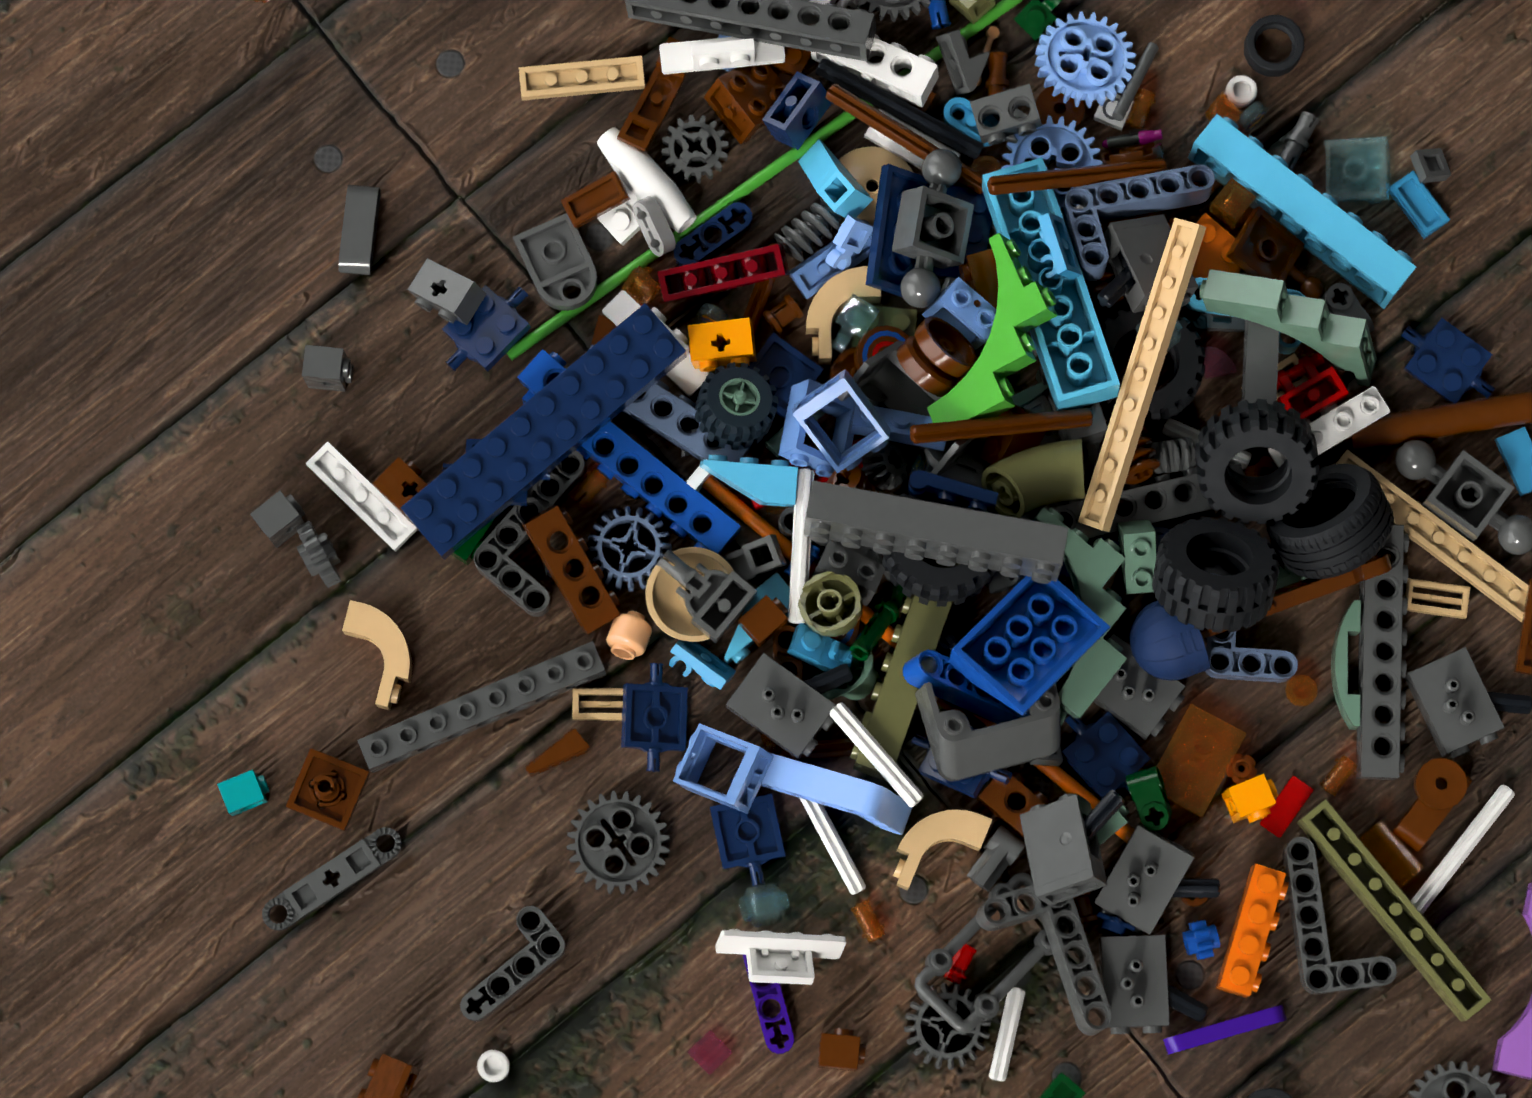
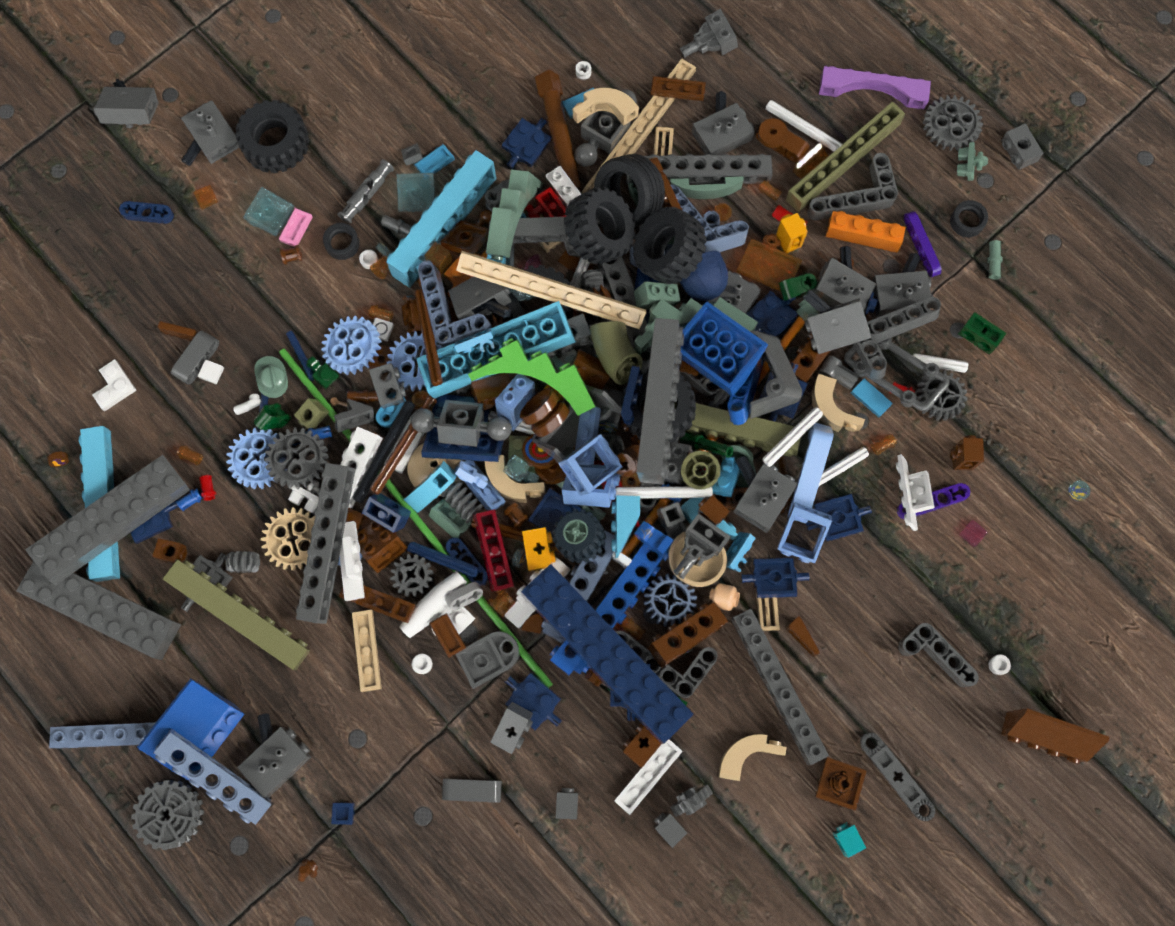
camera: 90 degrees left, 5 degrees down
(340, 40) = (343, 813): none -> dark blue plate
(556, 162) = (422, 663): none -> white tile
(594, 859) = (842, 582): dark grey gear -> none
(717, 197) = (443, 559): none -> dark blue axle
(725, 524) = (653, 538): none -> blue leg
(763, 905) = (882, 505): clear light blue head -> none
(783, 209) = (448, 519): none -> sand green slope
(951, 911) = (871, 398): none -> dark azure tile
(1001, 425) = (588, 371): reddish brown axle -> none
(1135, 82) = (372, 318): dark grey bar -> none
(1135, 137) = (398, 315): piece -> none
(1201, 939) = (873, 258): blue gear -> none
(1268, 632) = (719, 237): none -> sand blue beam
(1354, 80) = (363, 194): none -> dark grey piece
(1505, 492) = (606, 100): none -> tan arch

